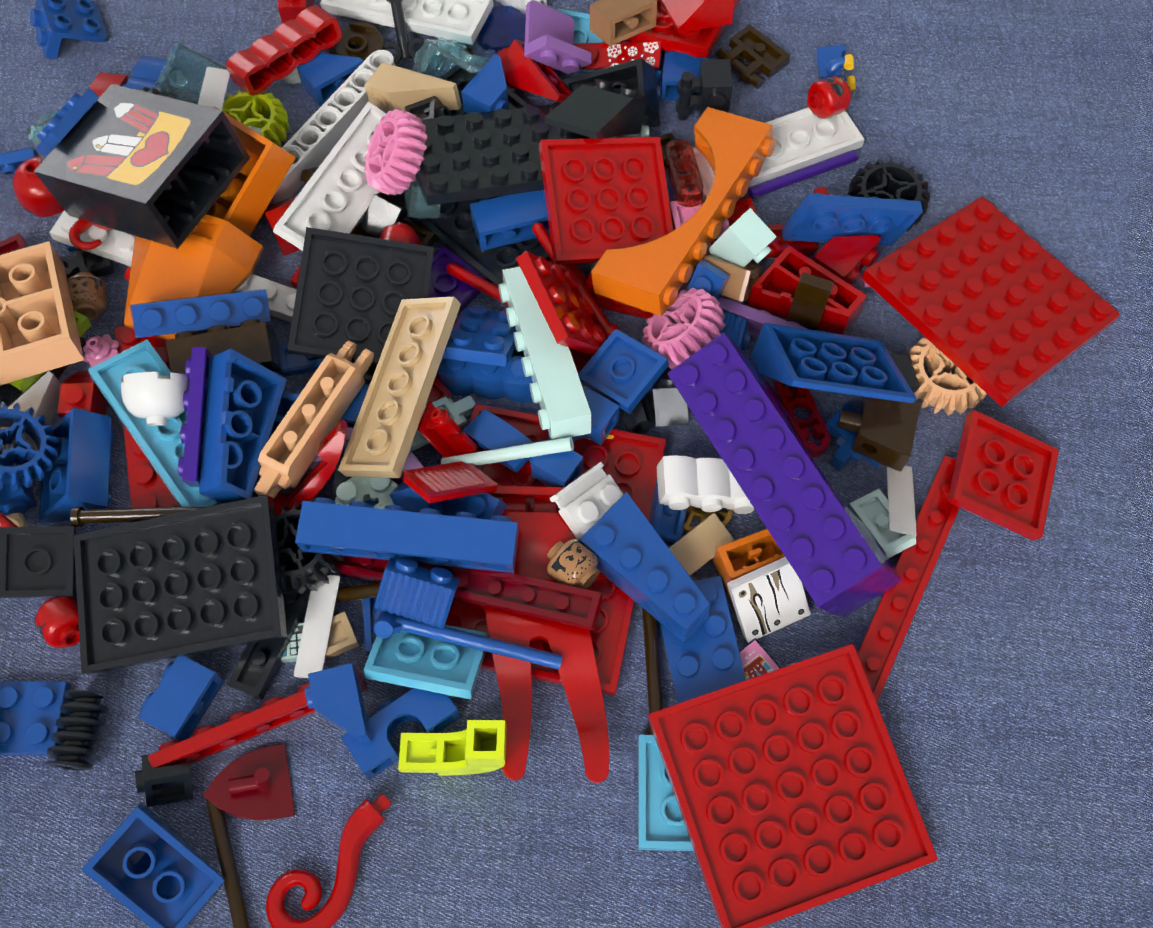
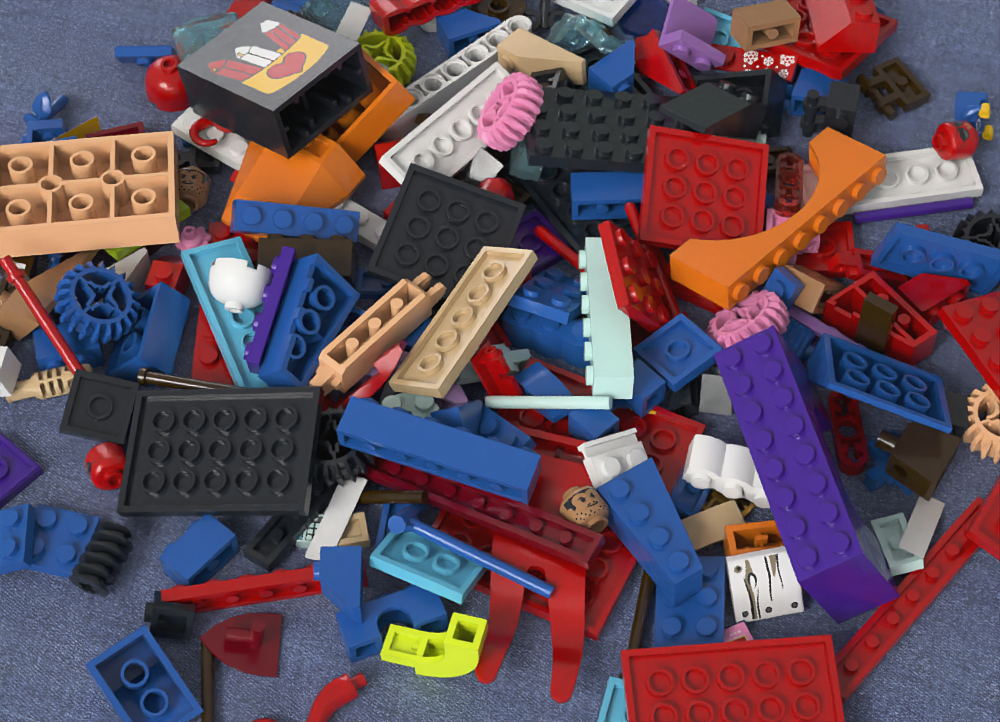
camera: 15 degrees right, 10 degrees down
(65, 121) = (212, 27): blue plate -> none
(416, 591) = (435, 499): blue brick -> none
(448, 481) = (488, 411): red window -> none
(744, 240) = (825, 254): light aqua slope -> none

